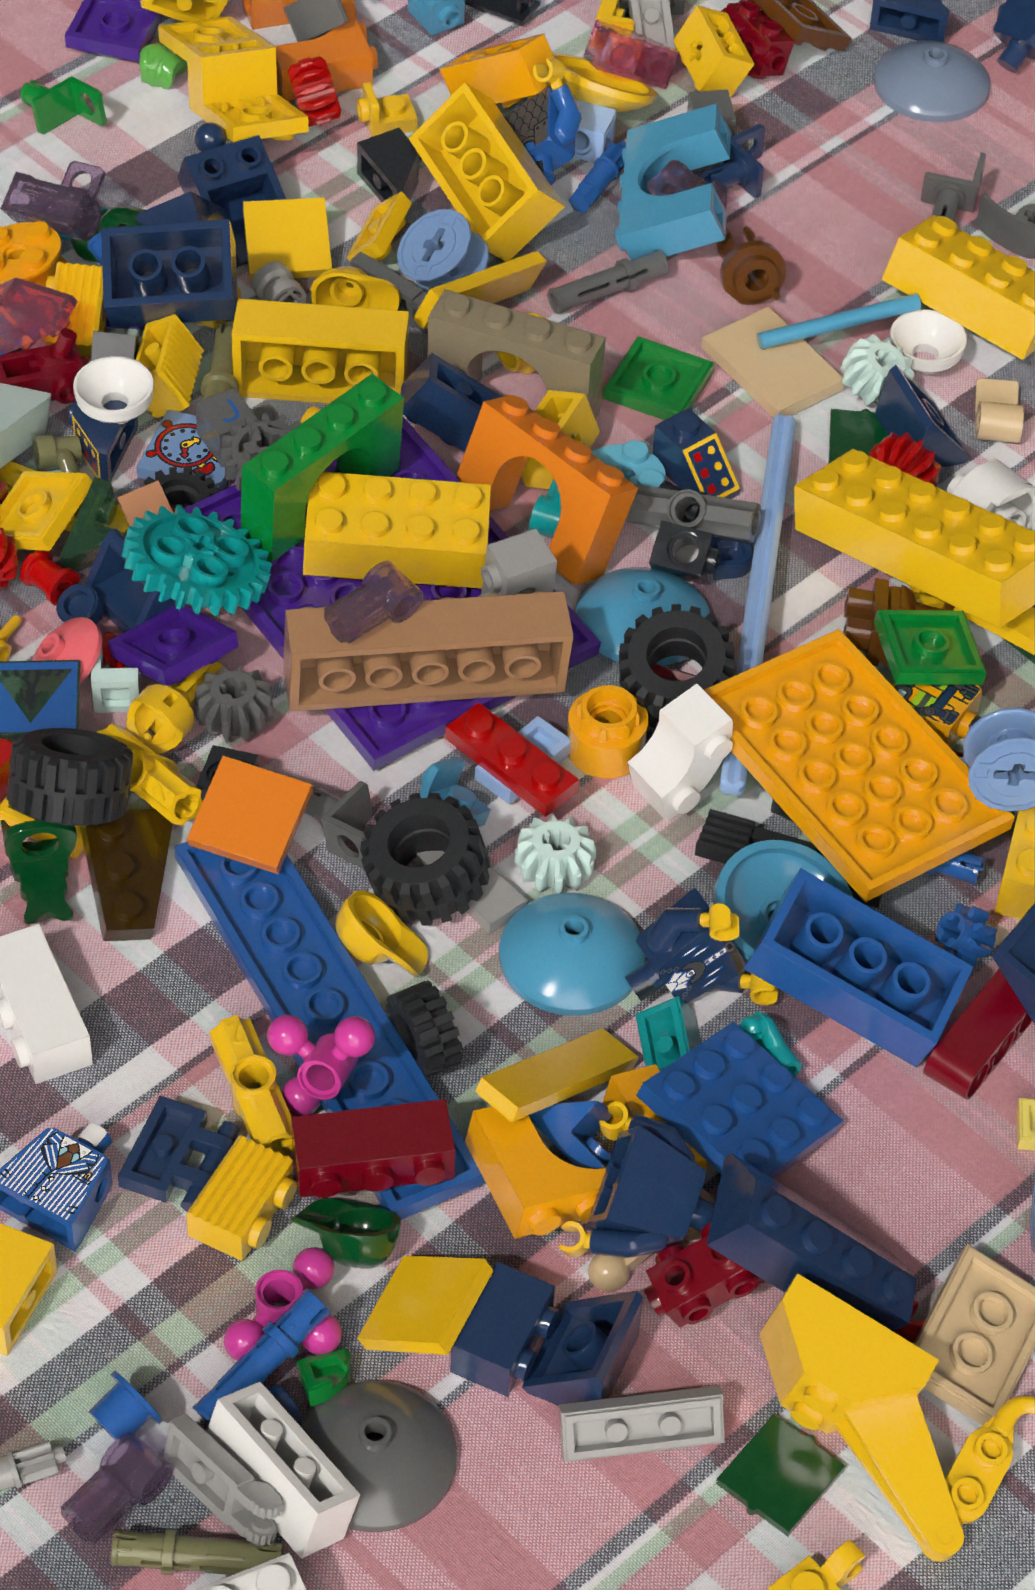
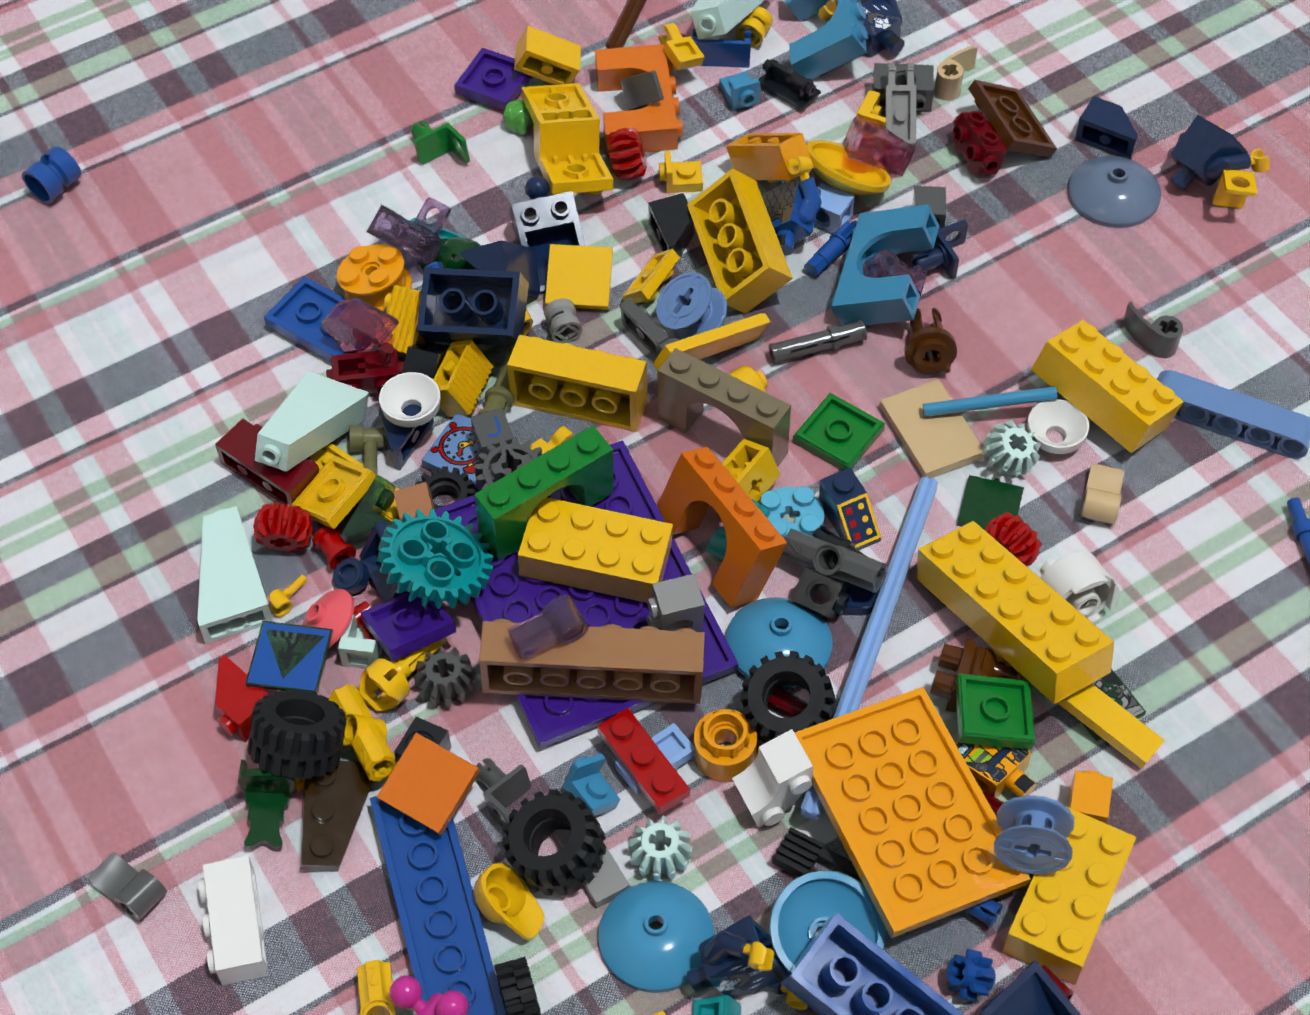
camera: 15 degrees right, 5 degrees up
(365, 291) = (615, 334): yellow cap -> none
(444, 400) = (662, 436): dark blue brick -> none
(713, 51) = (942, 151): yellow brick -> none
(910, 409) = (1036, 498): dark blue slope -> none
(952, 193) = (1106, 296): dark grey bracket -> none

